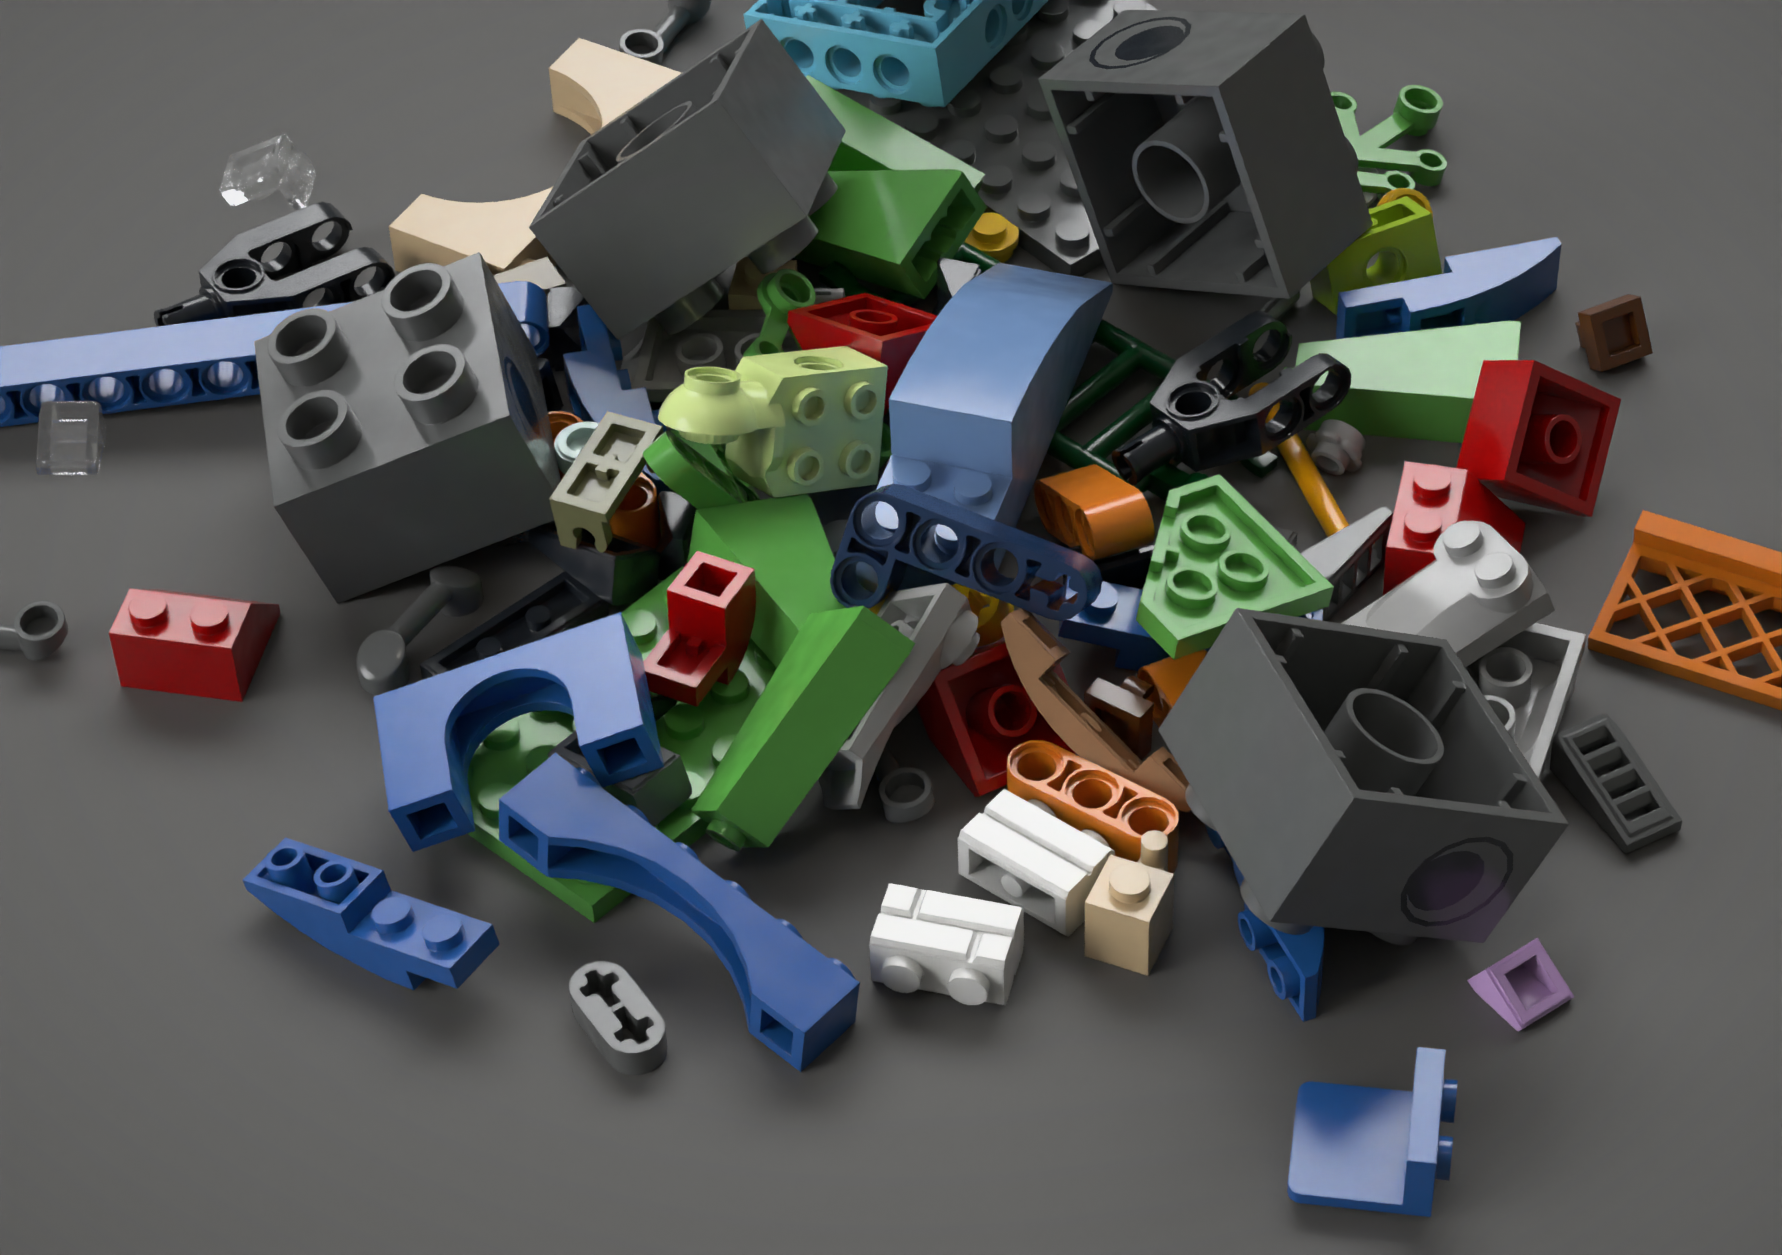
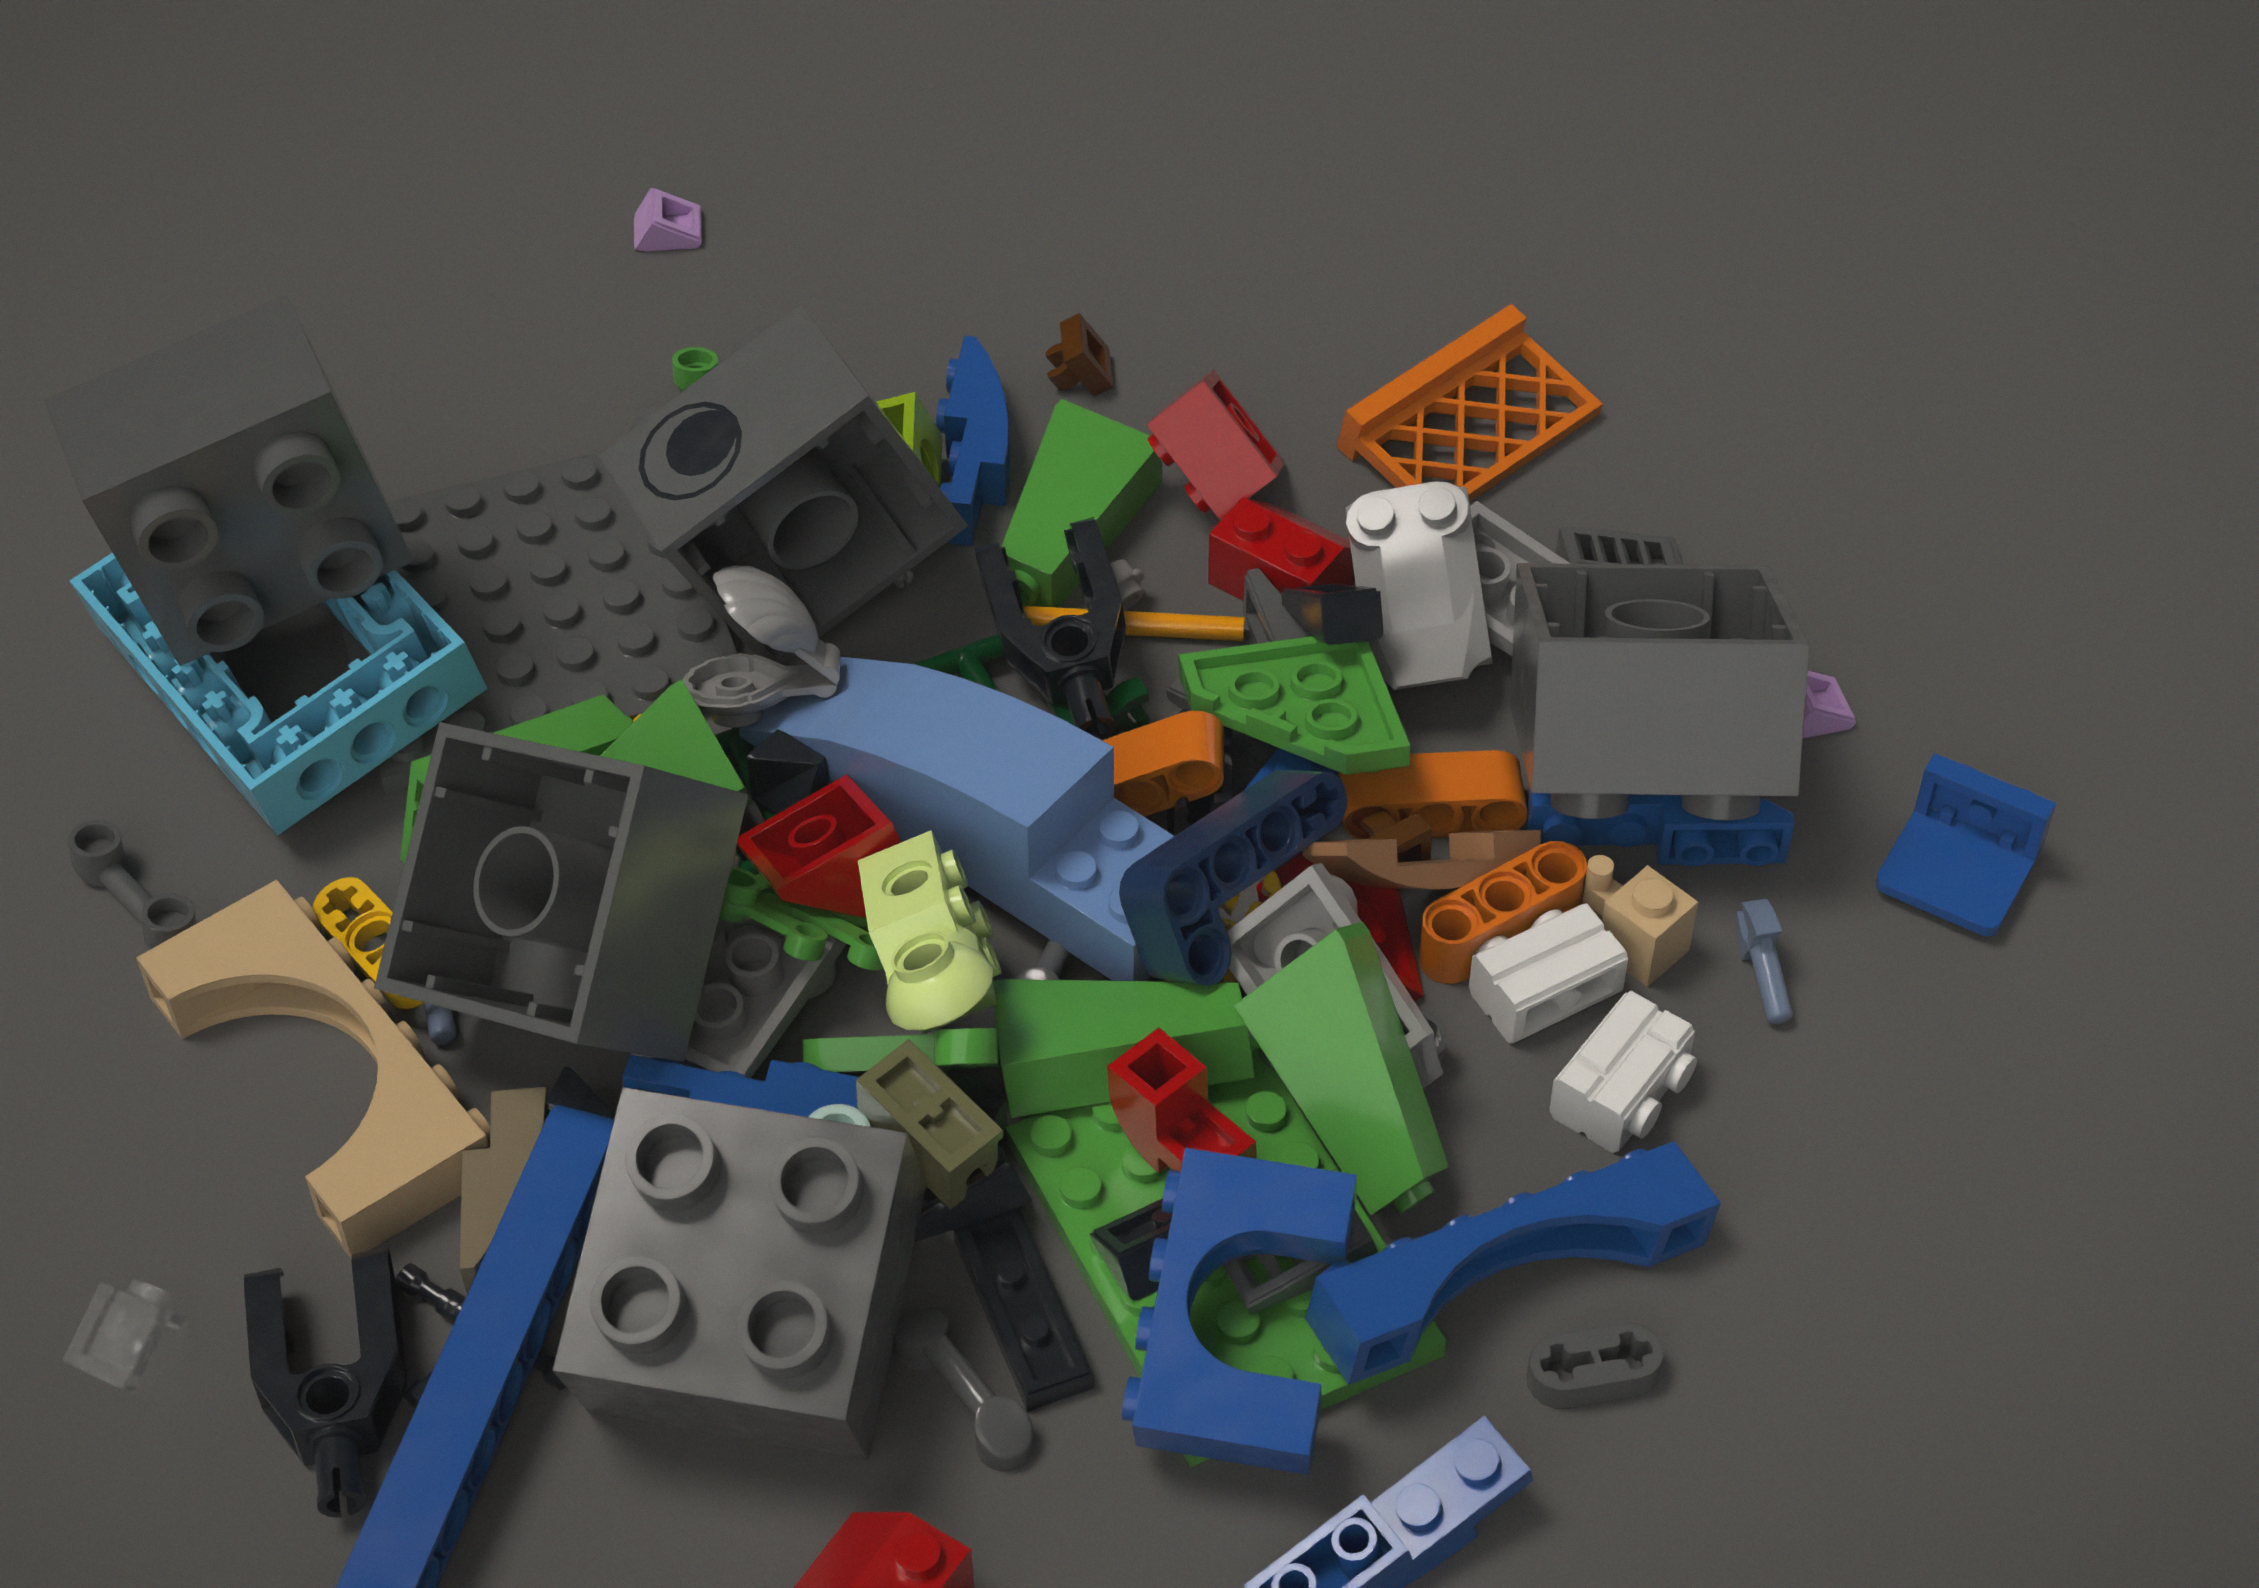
camera: 70 degrees left, 5 degrees up
(1055, 200) = (743, 685): none -> light grey animal
(1168, 1001) = (1757, 939): none -> sand blue bar
(1336, 556) = (1337, 611): none -> black slope
(1599, 35) = (666, 223): none -> lavender slope

